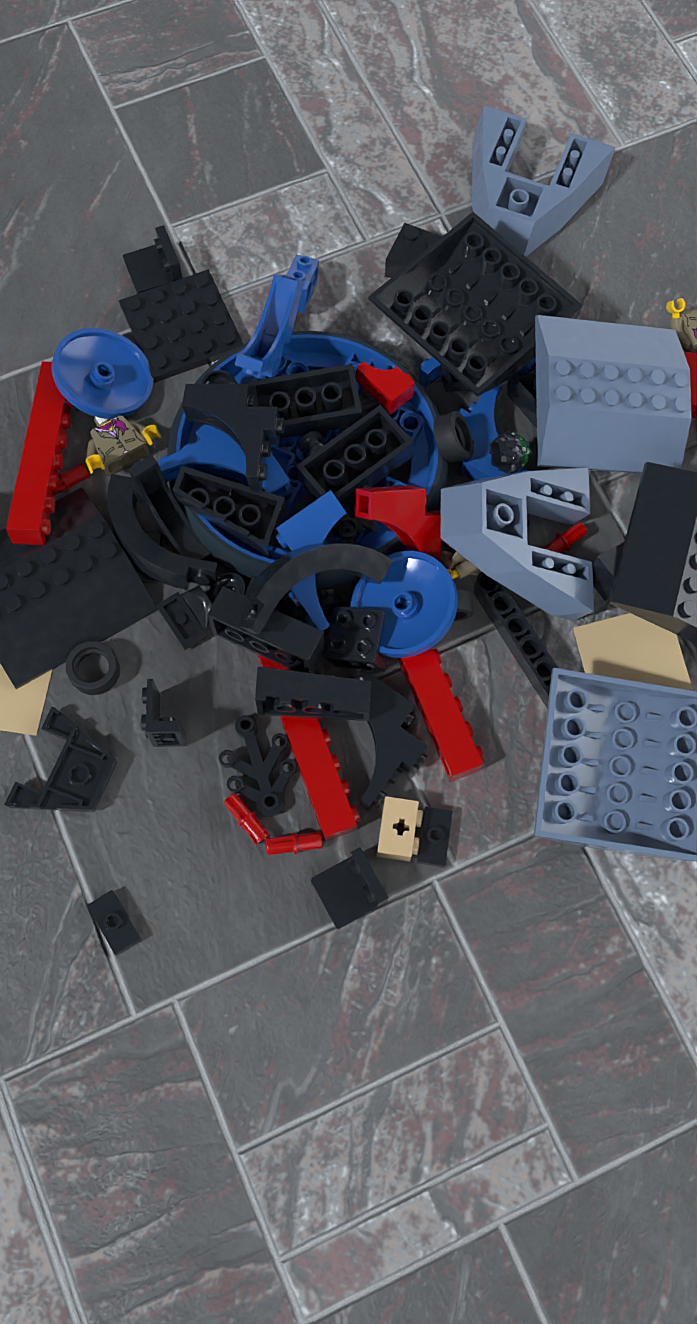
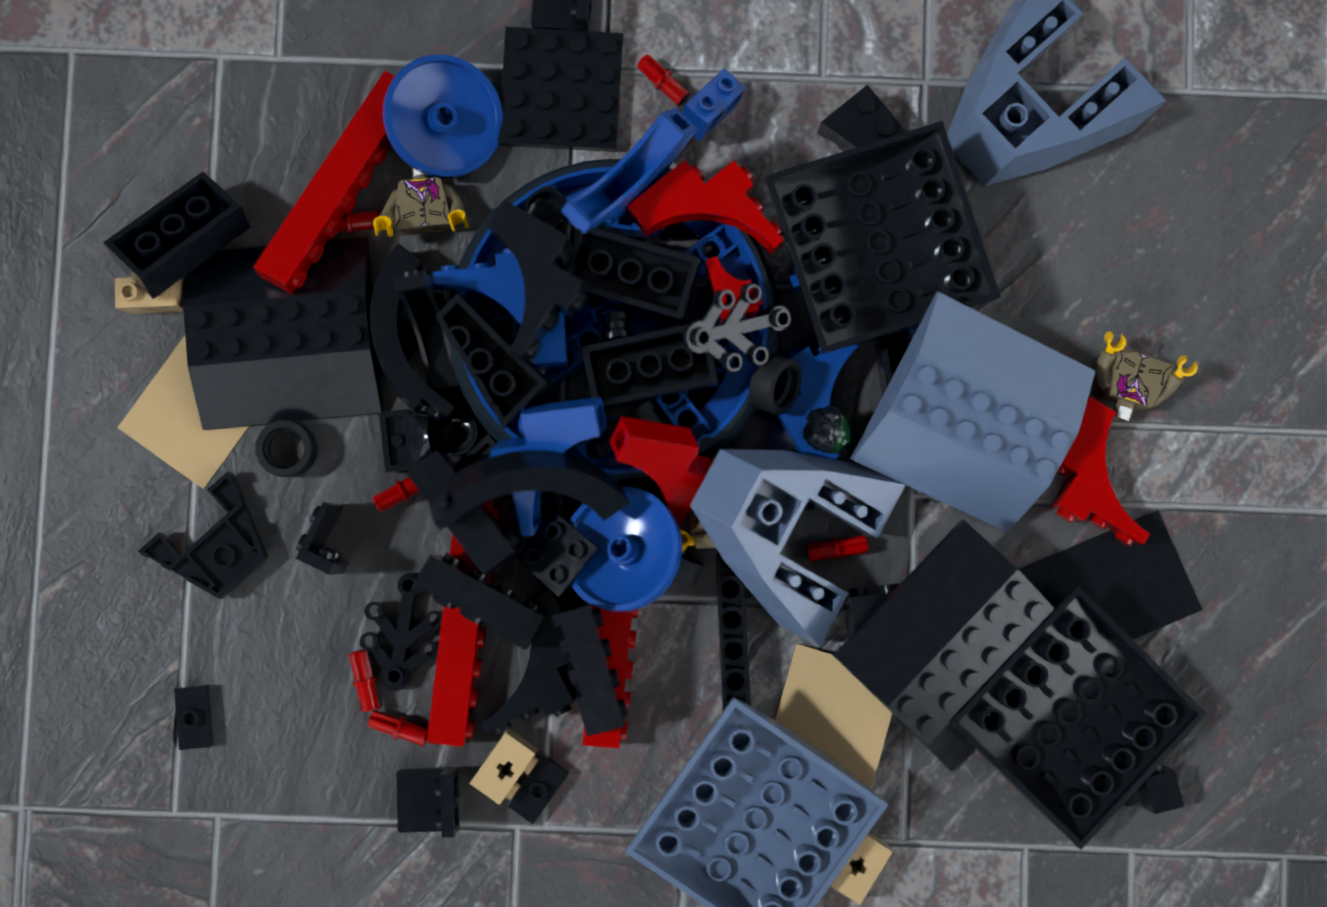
camera: 30 degrees right, 15 degrees up
(202, 657) = (395, 494): none -> red axle
(250, 286) = (663, 80): none -> red axle
(344, 329) = (722, 199): none -> red arch
(384, 413) = (734, 327): none -> black plant
(426, 703) = (590, 668): none -> black wedge

